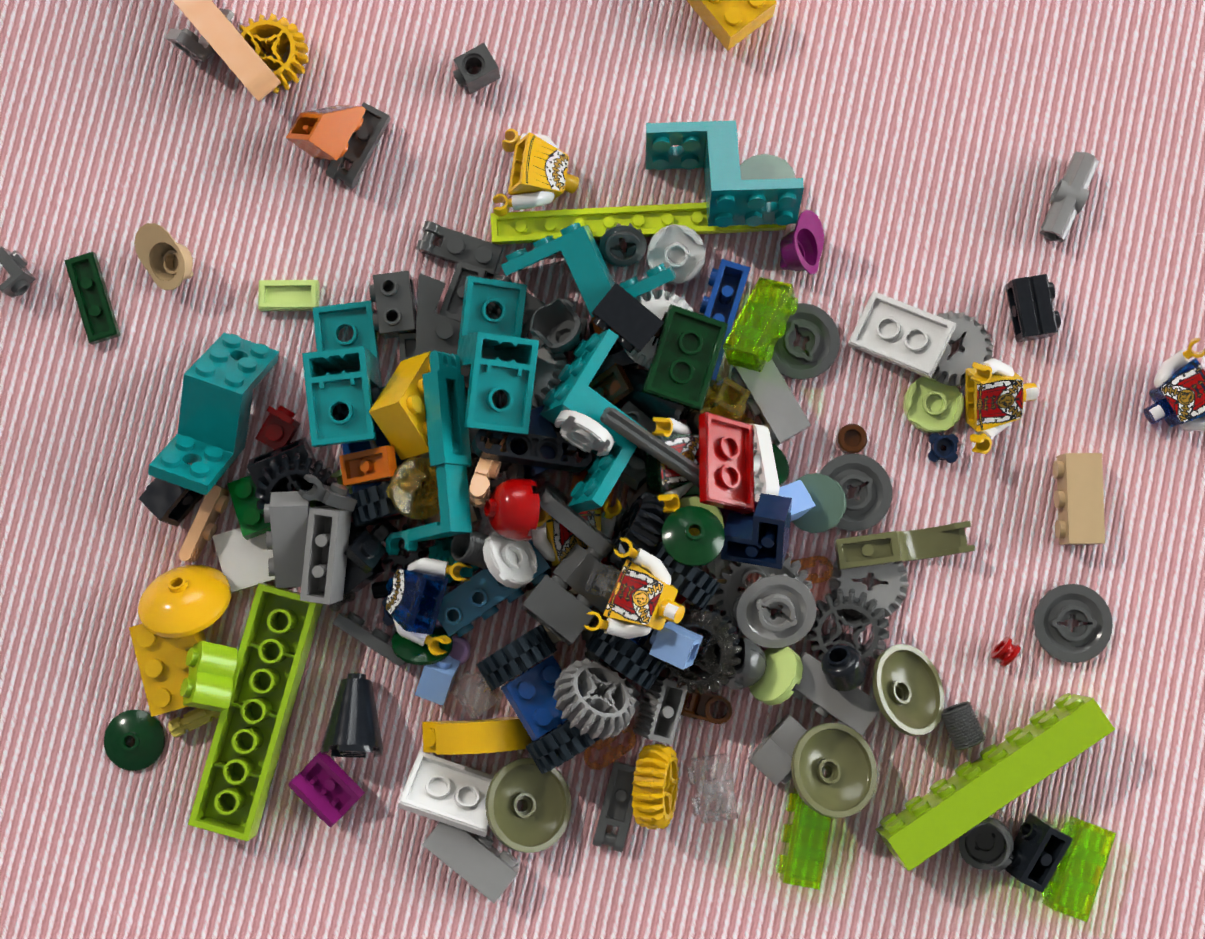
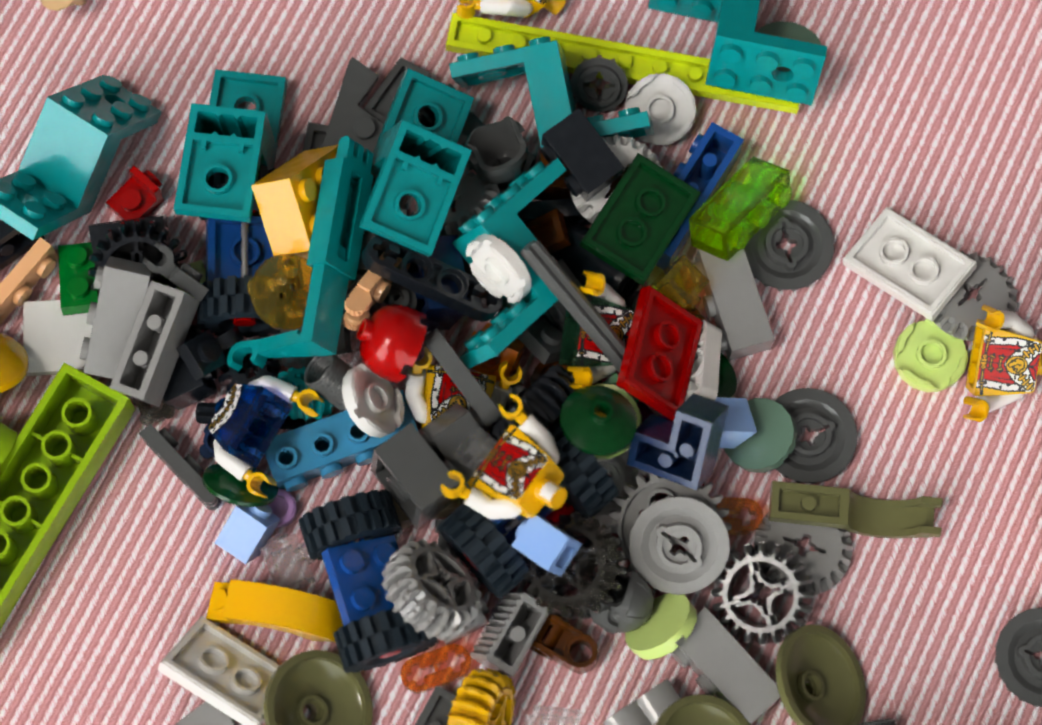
camera: 10 degrees right, 10 degrees down
(288, 295) = (190, 51): yellowish green tile -> none
(326, 788) = (77, 632): magenta bracket -> none
(353, 721) = (131, 559): black cone -> none
(368, 466) = (233, 253): orange slope -> none
(394, 304) = (313, 87): dark grey brick -> none
(459, 247) = (405, 43): dark grey plate -> none
(803, 245) = (815, 133): magenta piece -> none
(843, 668) = (745, 630): black head -> none
(851, 439) = (821, 372): reddish brown tile -> none
(949, 441) = (940, 404): dark blue plate -> none
(1005, 651) = (953, 670): red bush -> none

